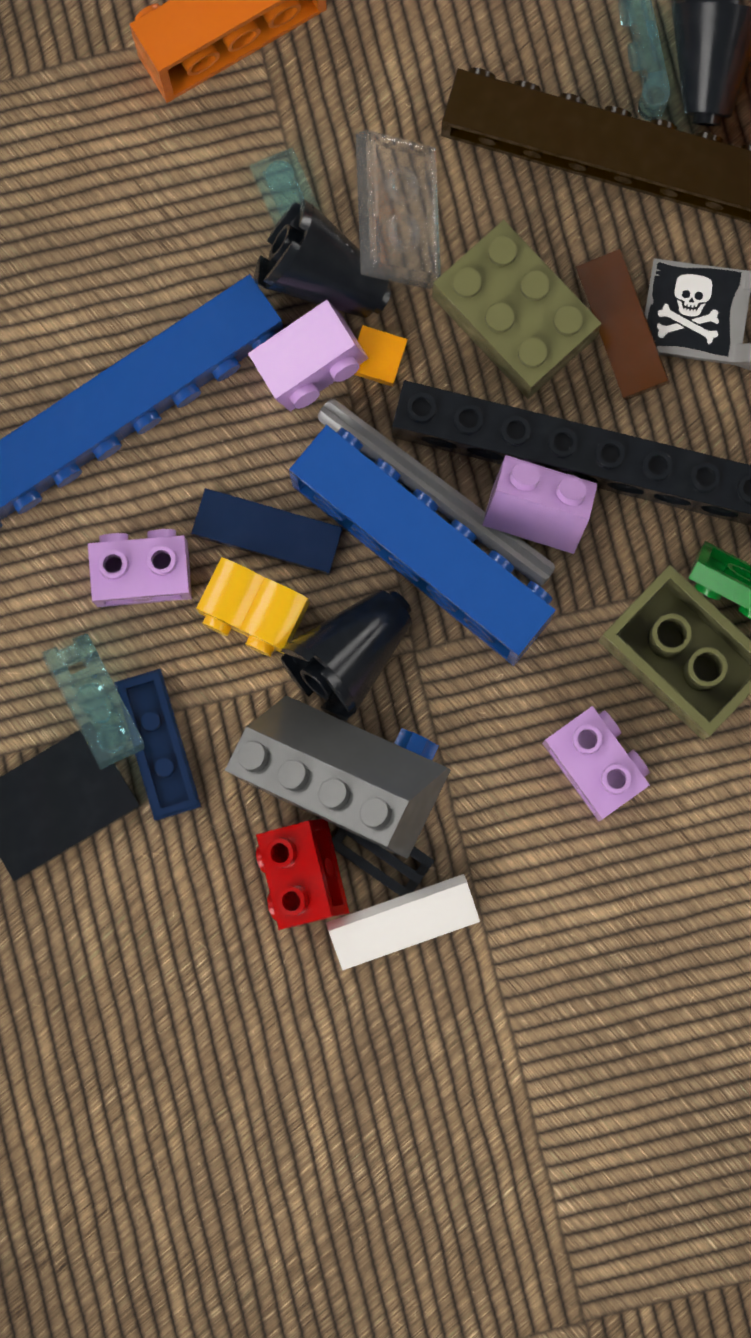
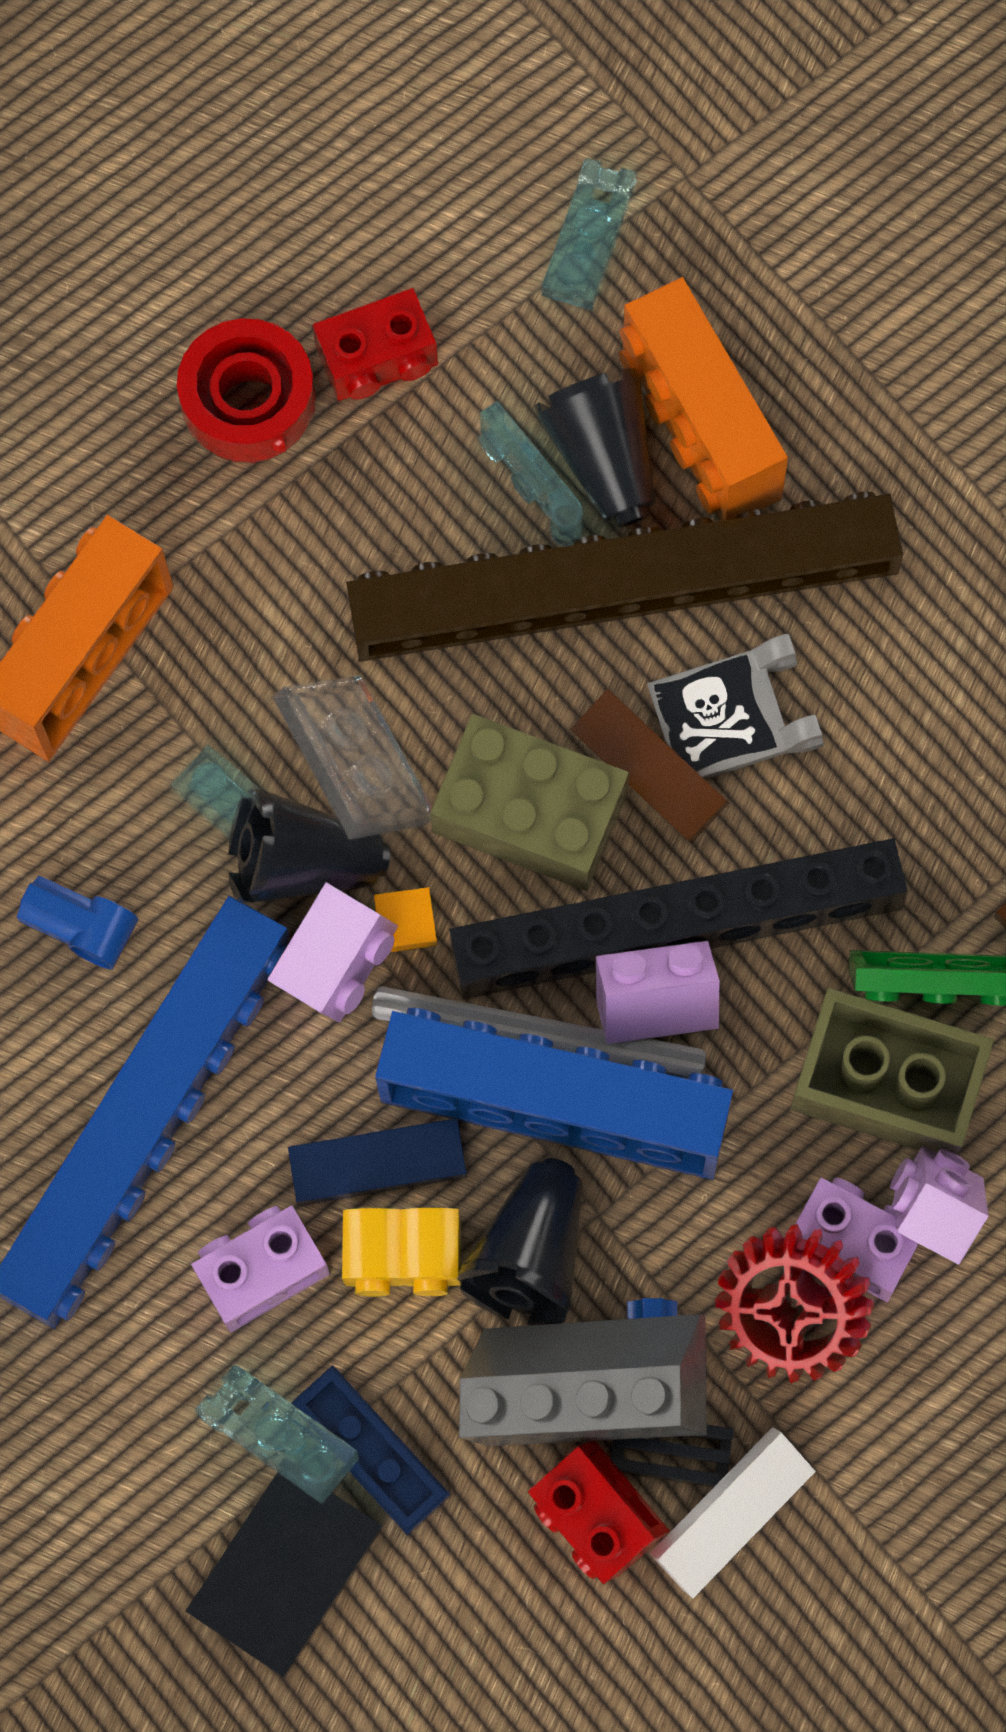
camera: 25 degrees left, 10 degrees down
(135, 247) = (91, 928): none -> blue piece
(549, 784) = (750, 1306): none -> red gear
(672, 769) = (939, 1202): none -> lavender brick

